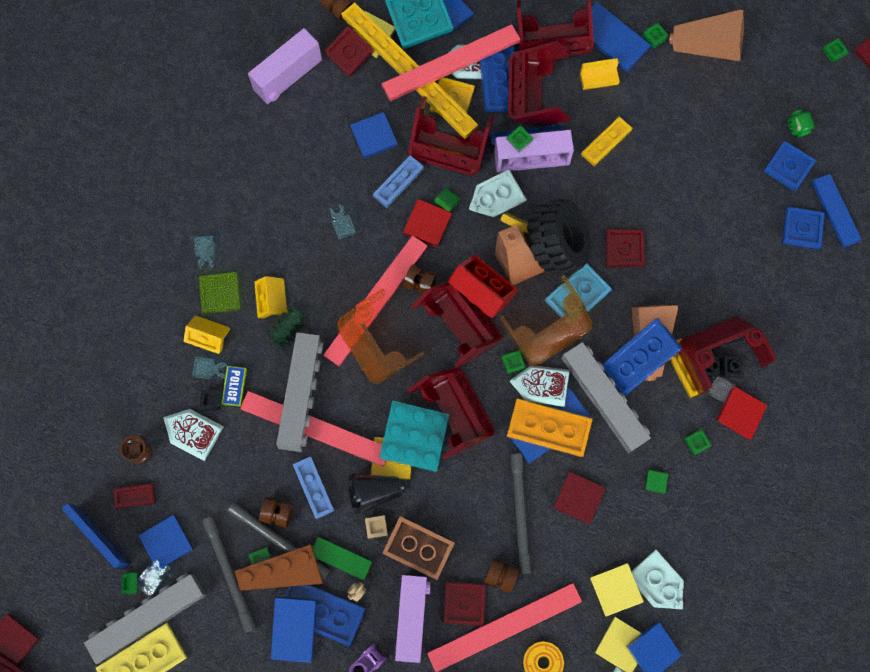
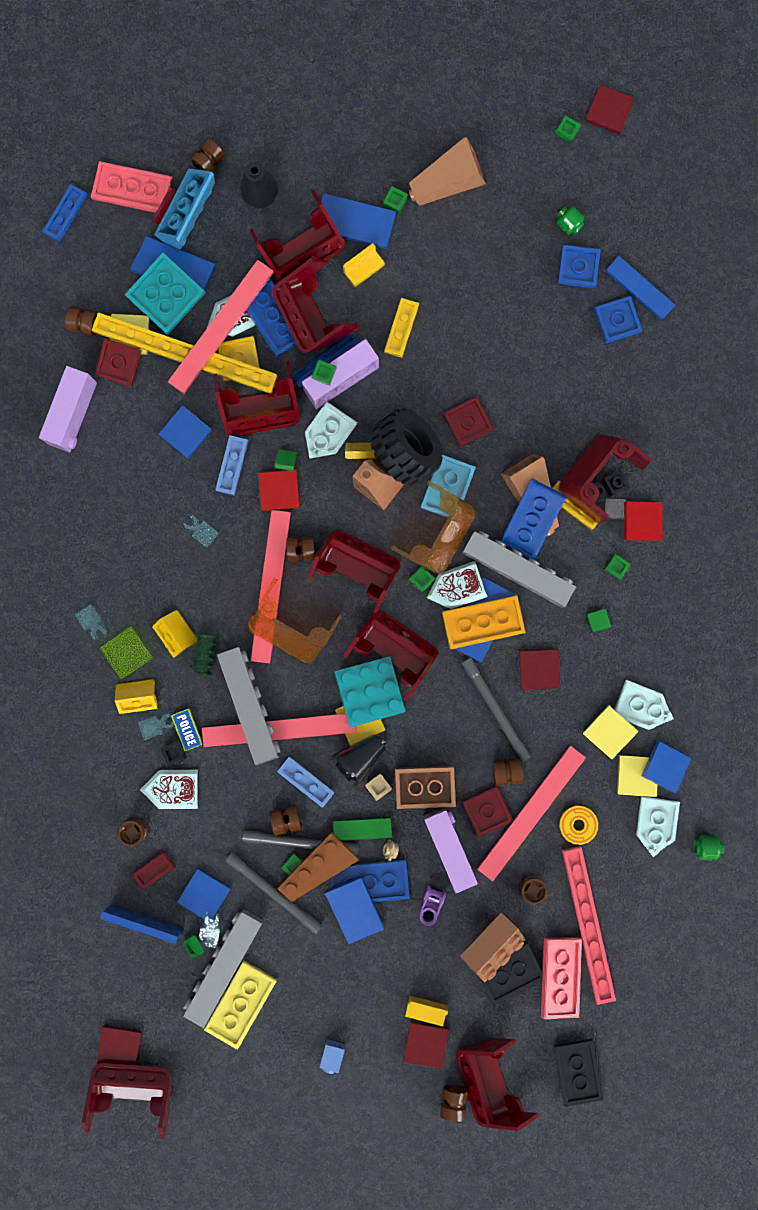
camera: 25 degrees left, 10 degrees up
(483, 286) = (360, 525): red brick -> none

